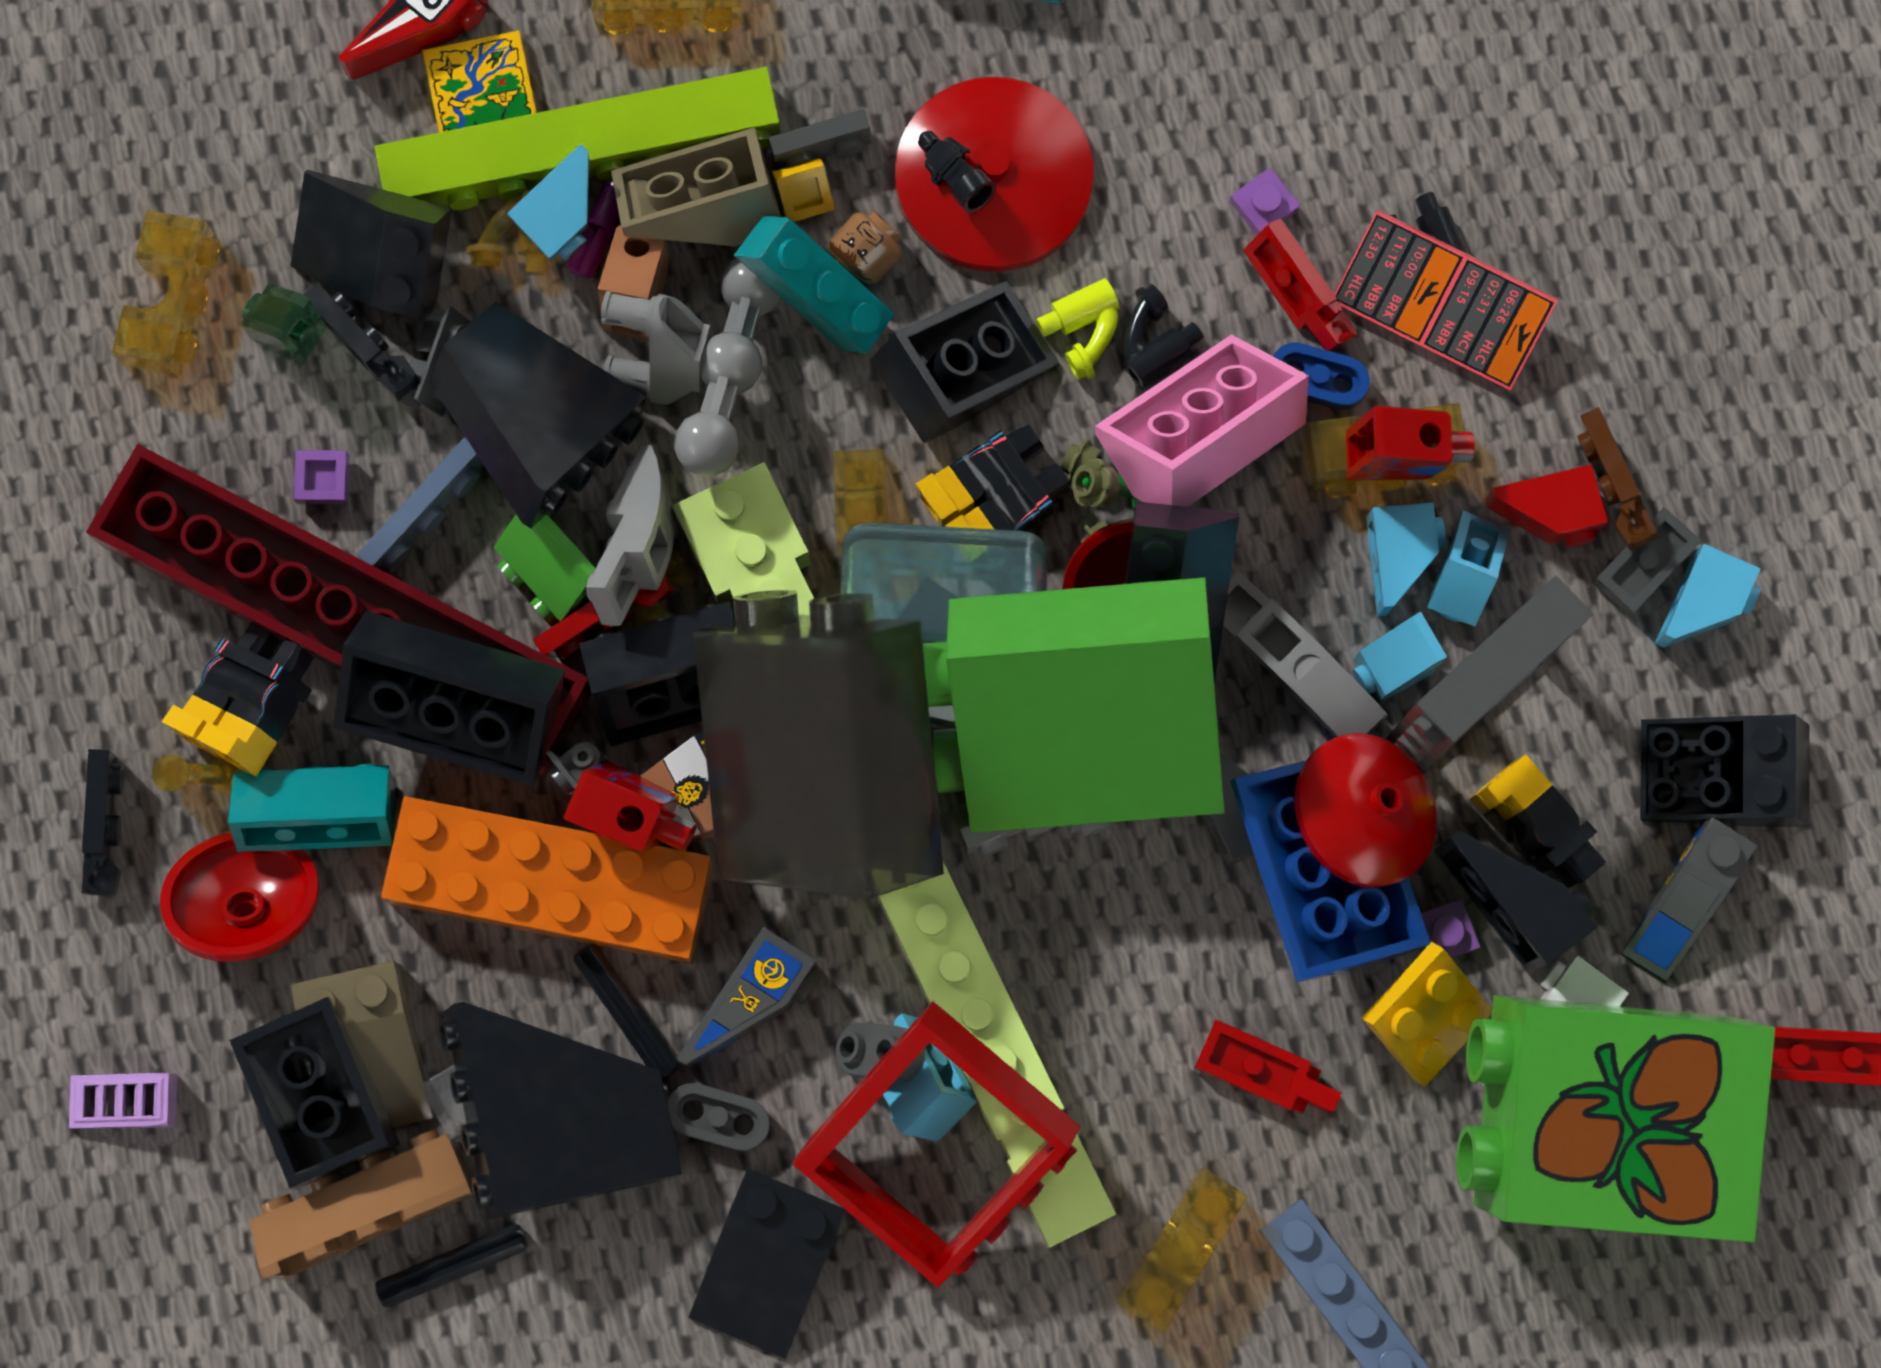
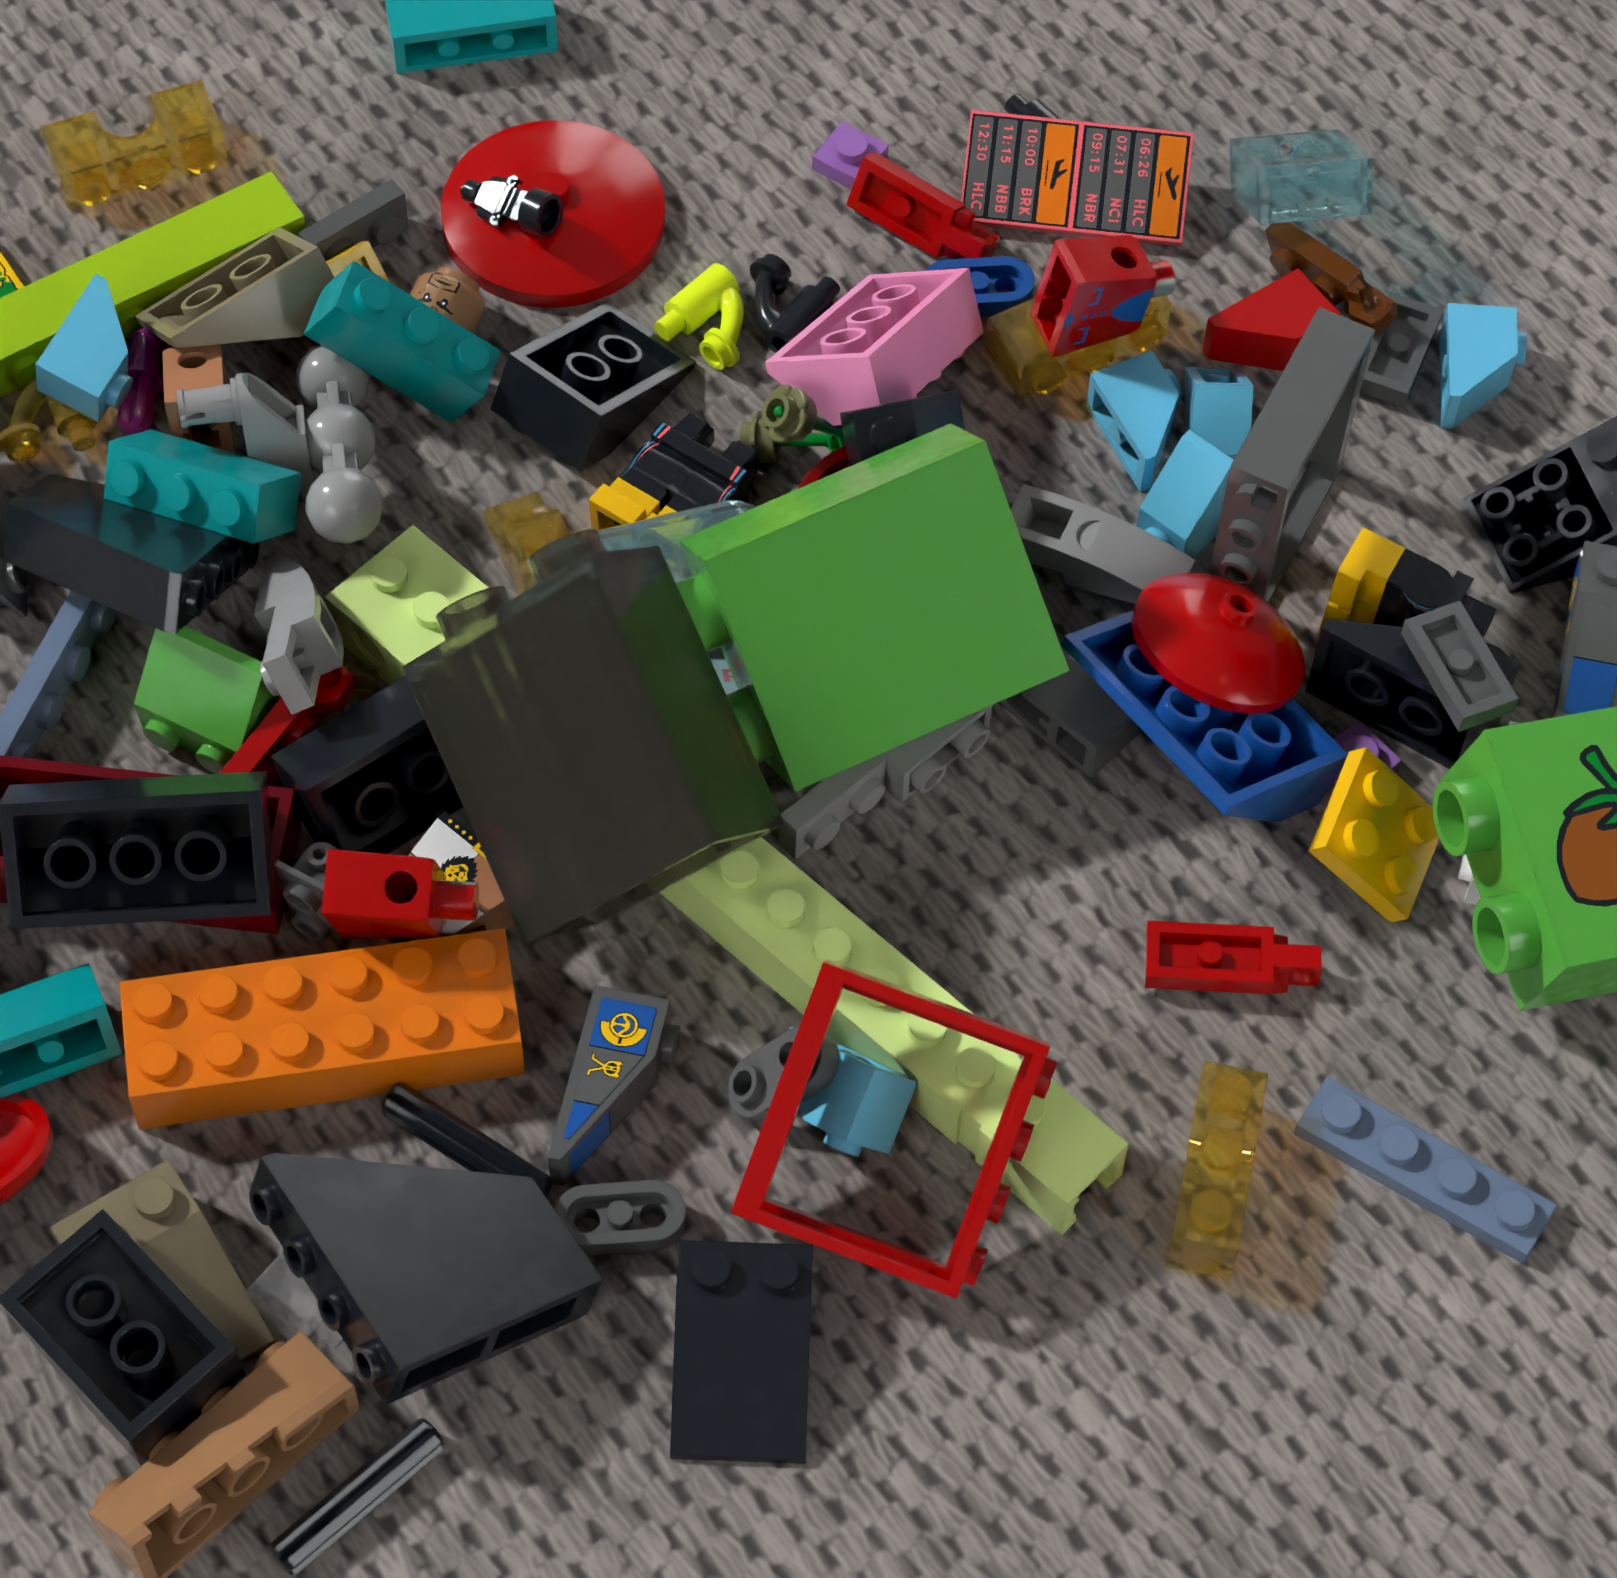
camera: 20 degrees left, 20 degrees down
(605, 374) = (202, 485): none -> teal brick
(1541, 921) = (1459, 666): none -> dark grey plate
(1626, 401) = (1315, 180): none -> clear light blue window

